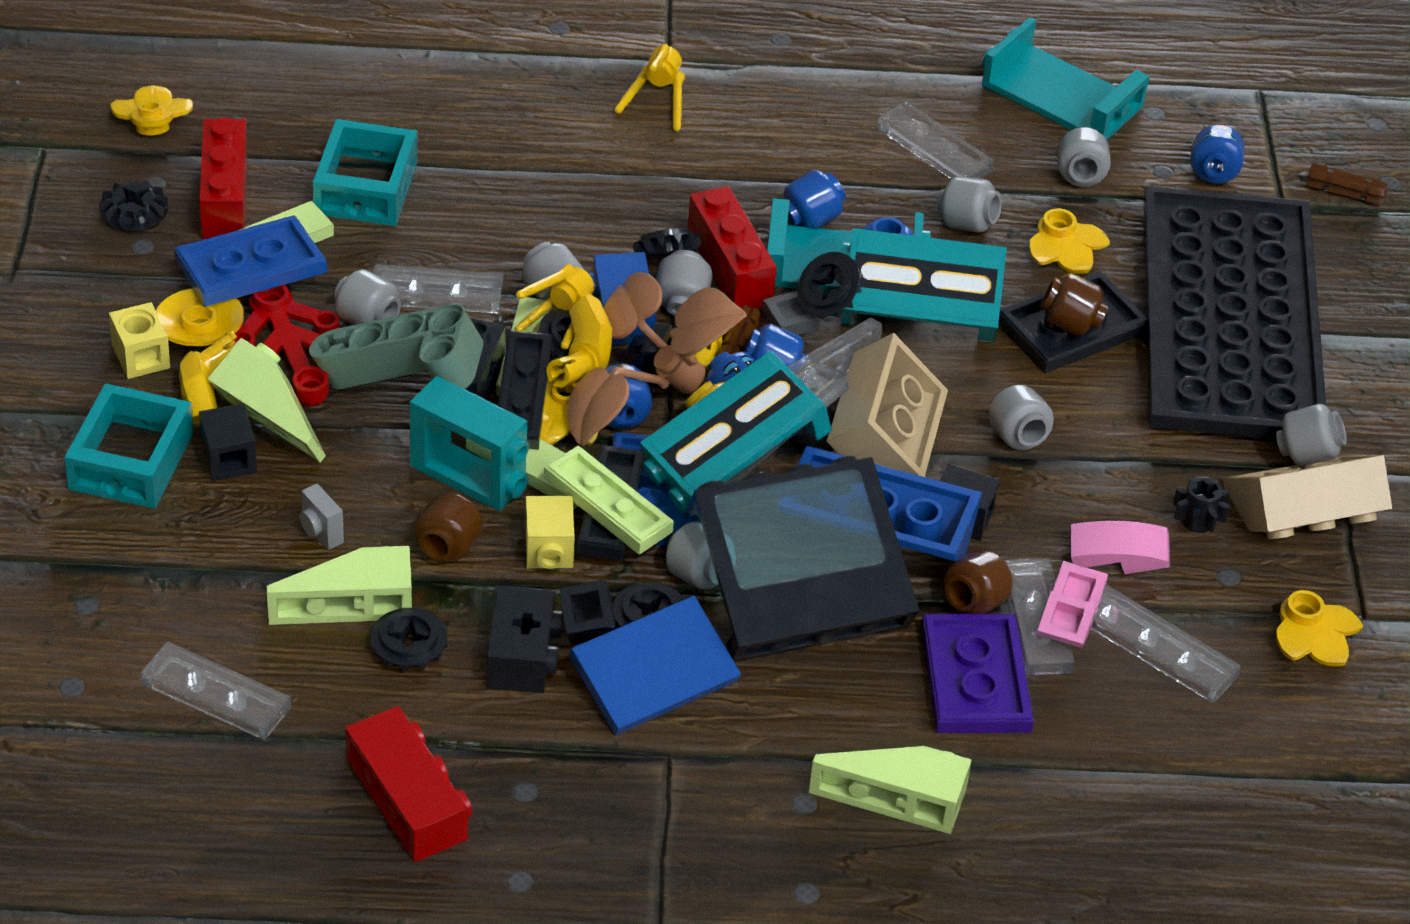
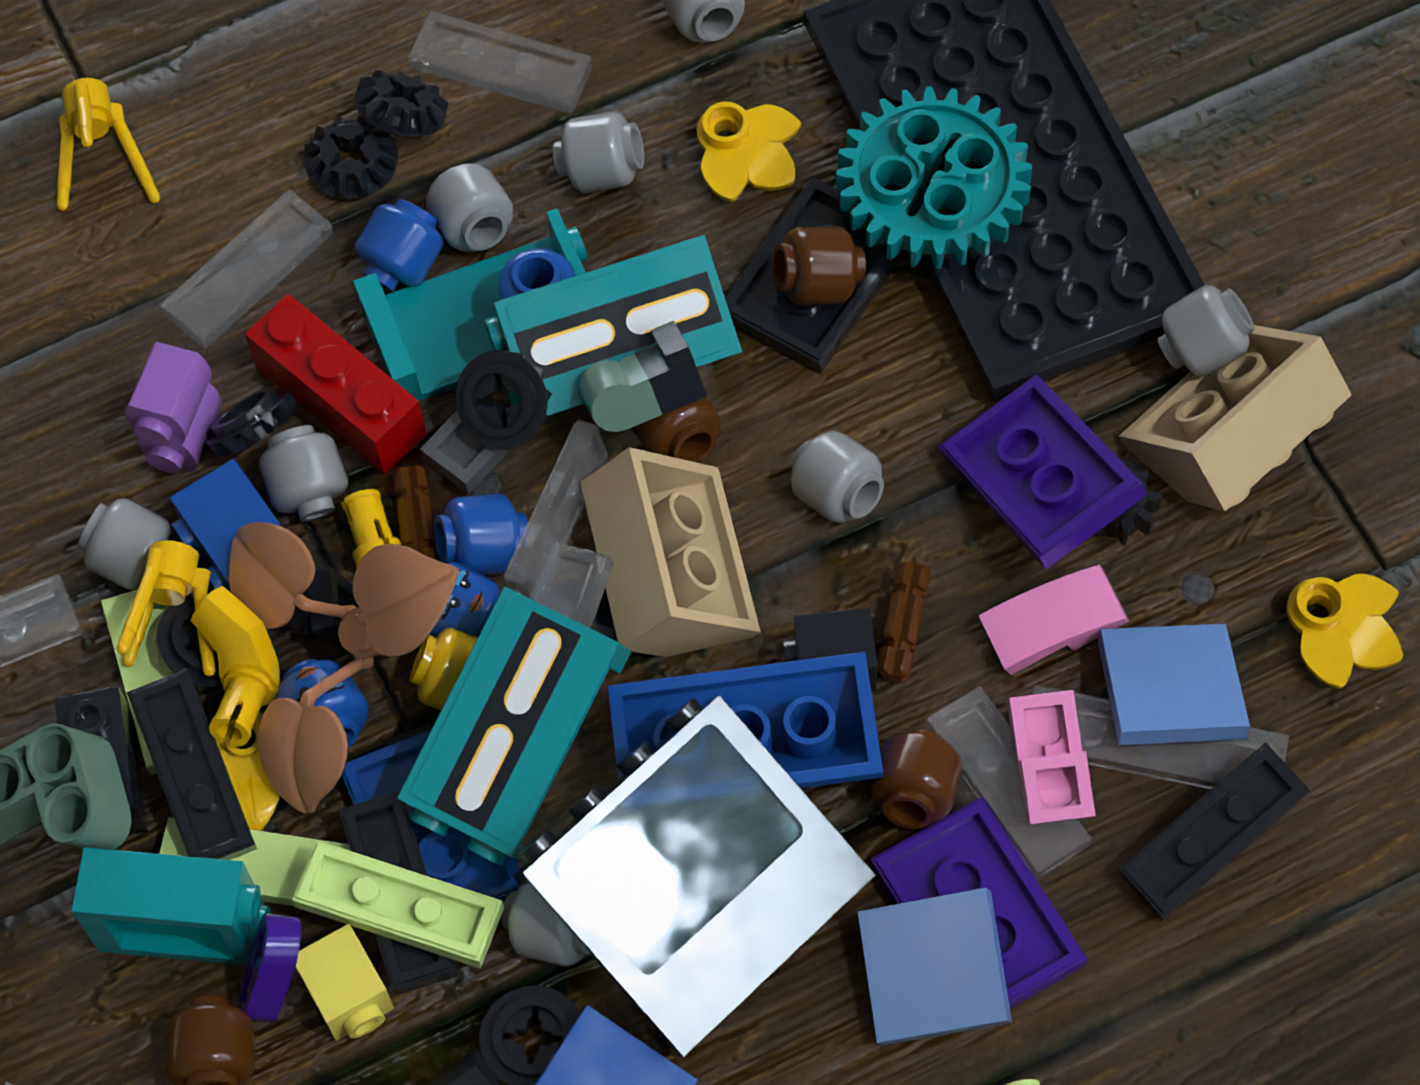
camera: 20 degrees left, 20 degrees up
(510, 497) = (270, 967): none -> dark purple beam
(623, 211) = (173, 408): none -> medium lavender brick
(741, 173) = (246, 269): none -> clear tile
(799, 158) = (351, 177): none -> black gear
(858, 135) = (400, 104): none -> black gear
(869, 197) = (470, 207): none -> light grey head
(922, 311) = (642, 383): none -> leg
(929, 678) = (934, 967): none -> medium blue tile
(936, 347) = (682, 433): none -> reddish brown head
(1019, 510) = (903, 622): none -> reddish brown axle
(1157, 462) = (1042, 471): none -> dark purple tile
(1159, 691) = (1213, 831): none -> black tile
(1177, 289) = (982, 197): none -> teal gear
(1178, 606) = (1173, 684): none -> medium blue tile

